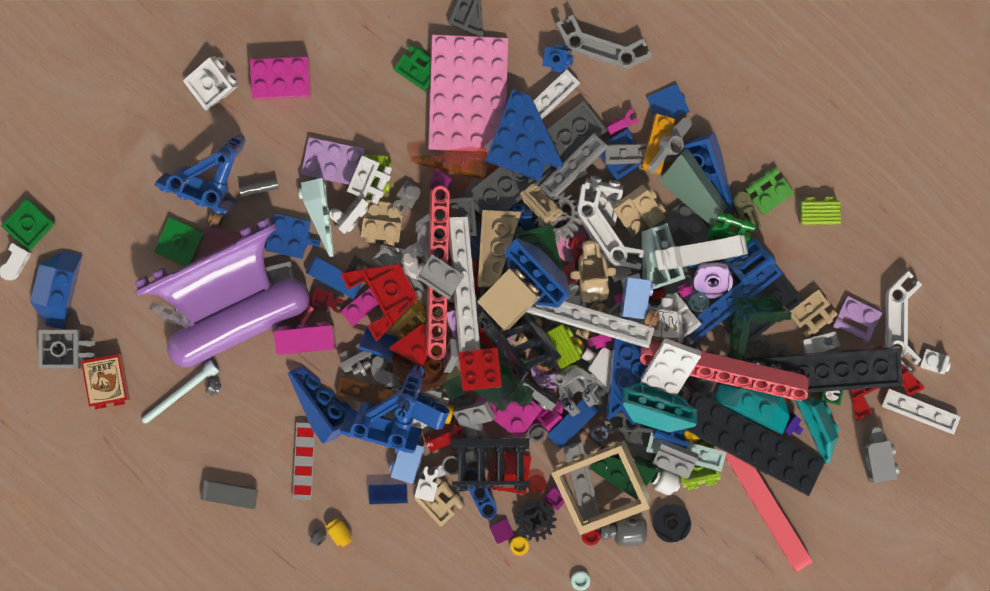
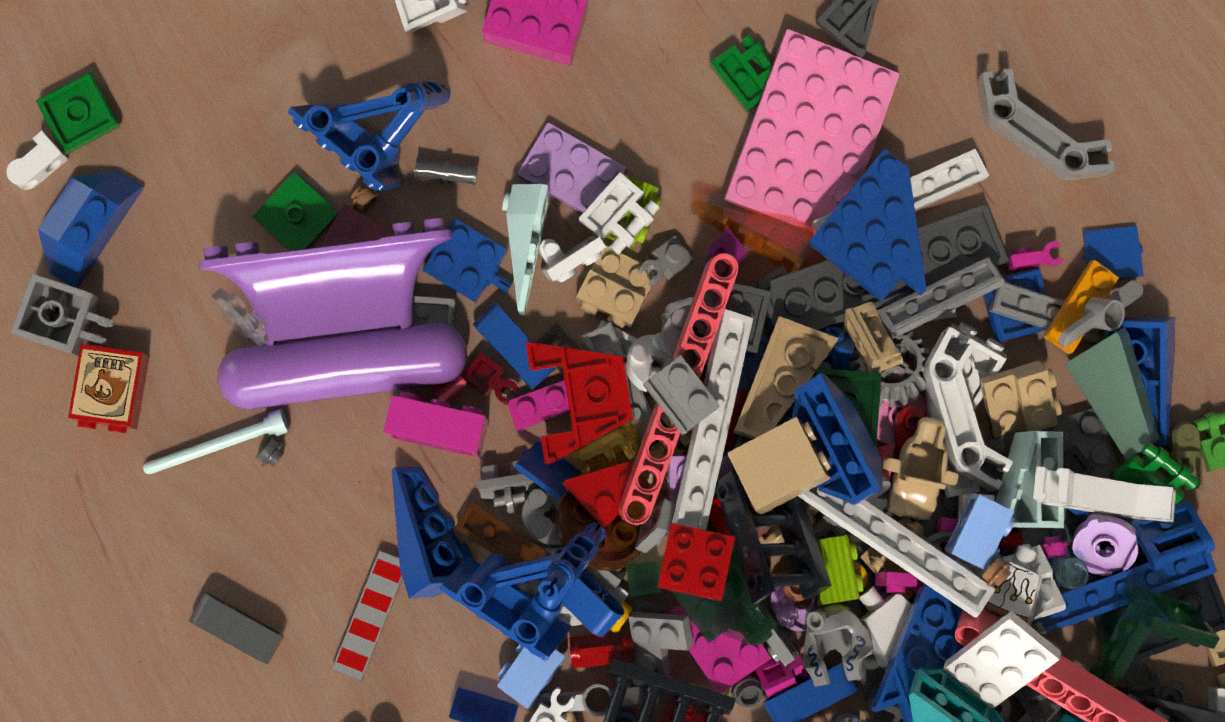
camera: 15 degrees right, 5 degrees down
(551, 58) = (960, 118): blue brick -> none

